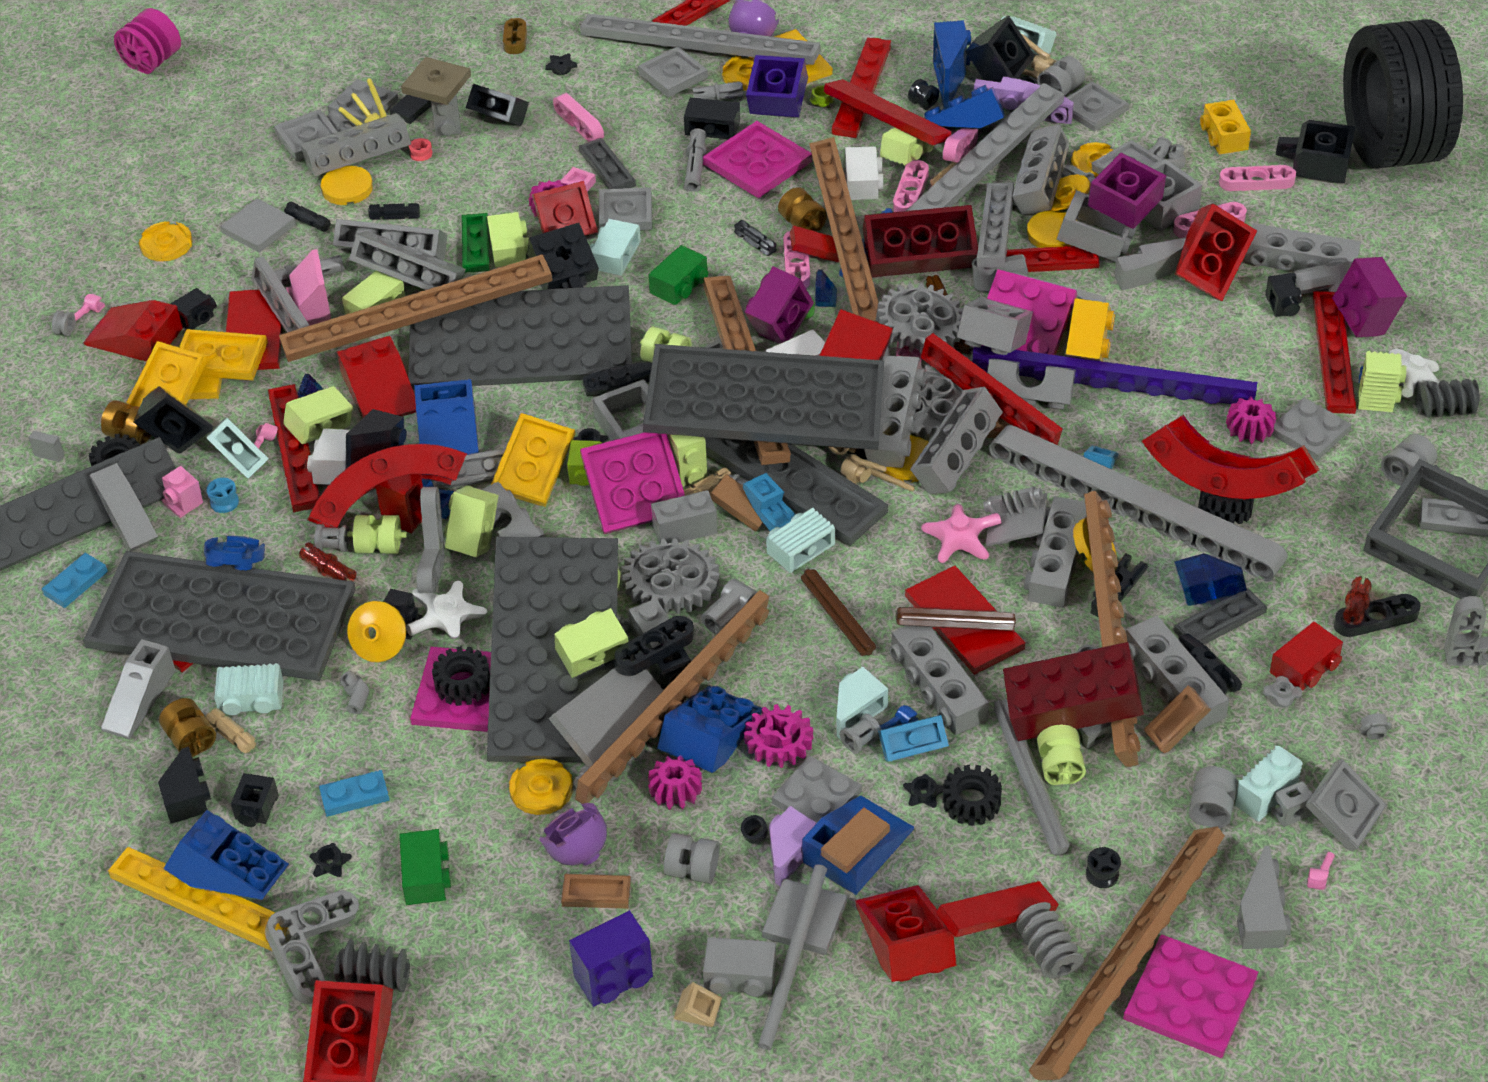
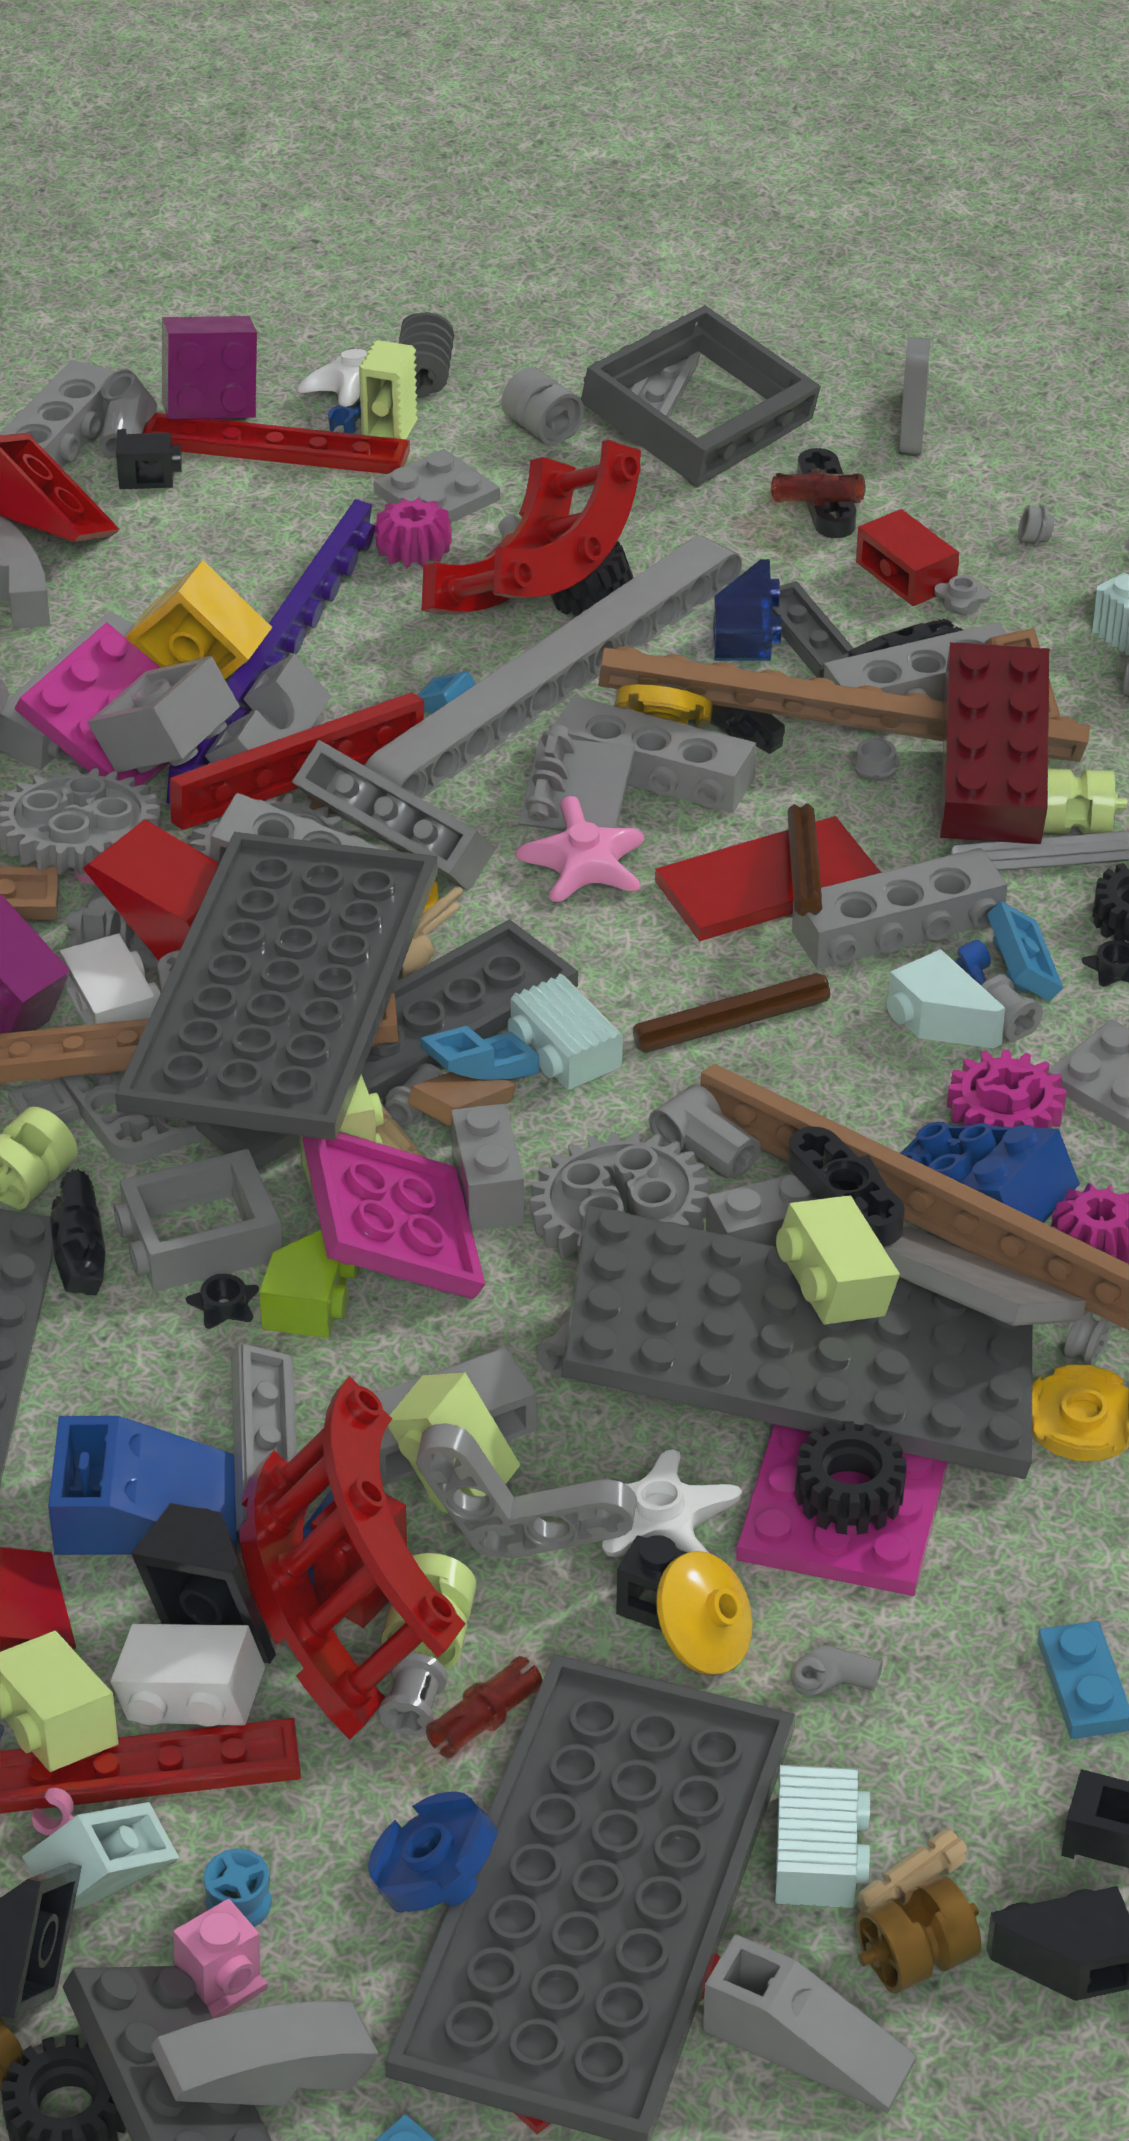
camera: 85 degrees left, 5 degrees down
(533, 459) = (277, 1357): yellow tile -> none

